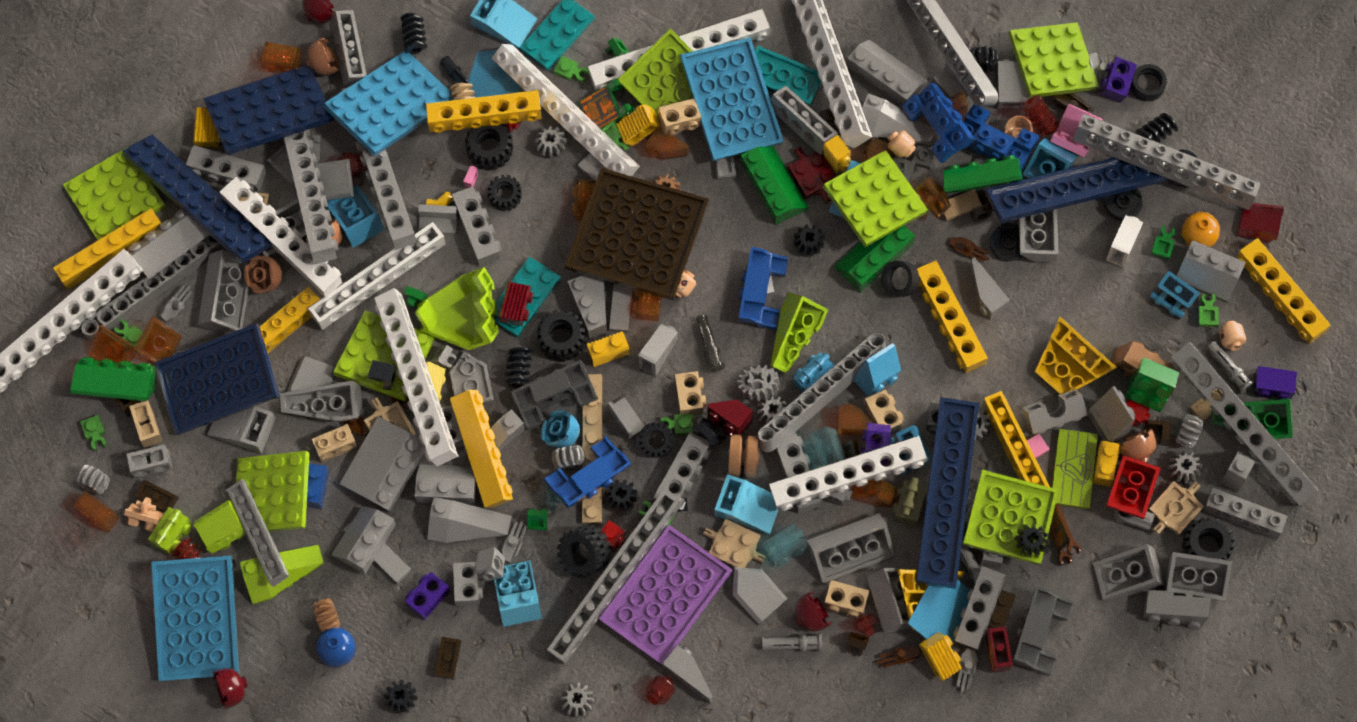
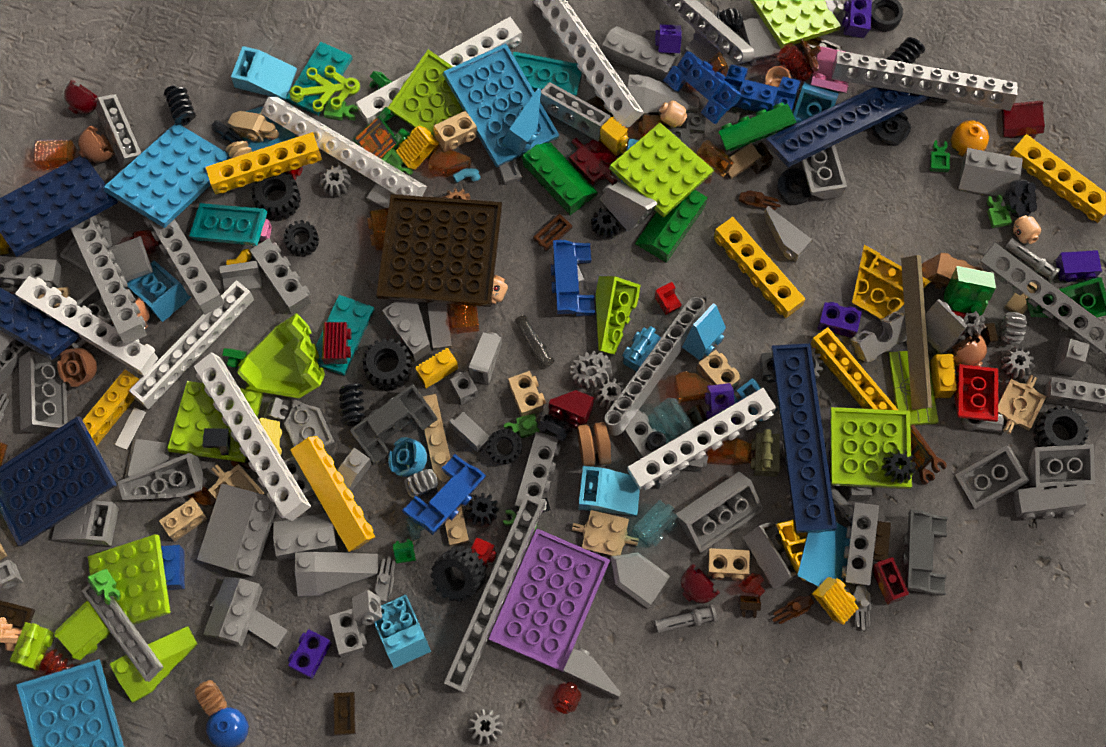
camera: 15 degrees left, 0 degrees up
(248, 486) = (103, 583): none -> bright green plate
(301, 344) = (130, 428): none -> white sticker
(436, 164) = (228, 224): none -> teal plate
(480, 69) = (252, 126): none -> tan hinge
(562, 46) = (326, 89): none -> lime plant
(634, 380) = (467, 394): none -> light grey brick
(682, 160) = (467, 172): none -> medium azure arm
(744, 132) = (521, 133): none -> dark azure slope
(757, 244) = (546, 247): none -> reddish brown tile
(804, 460) = (656, 435): none -> black plate
(832, 227) = (627, 205): none -> light grey slope
(852, 328) = (667, 299): none -> red panel
(913, 280) = (689, 241): black tyre -> none
(917, 64) = (668, 38): none -> dark purple brick
(1014, 391) = (838, 324): none -> dark purple brick
(1038, 445) = (874, 371): bright pink tile -> none
(1057, 111) = (810, 55): none -> reddish brown piece
(1087, 414) = (916, 332): none -> dark tan tile
(1124, 241) = (903, 163): white slope -> none
(1147, 418) = (974, 318): none -> light grey gear
(1177, 289) = (966, 197): dark azure brick -> none
(1243, 302) = (1022, 189): none -> black plate

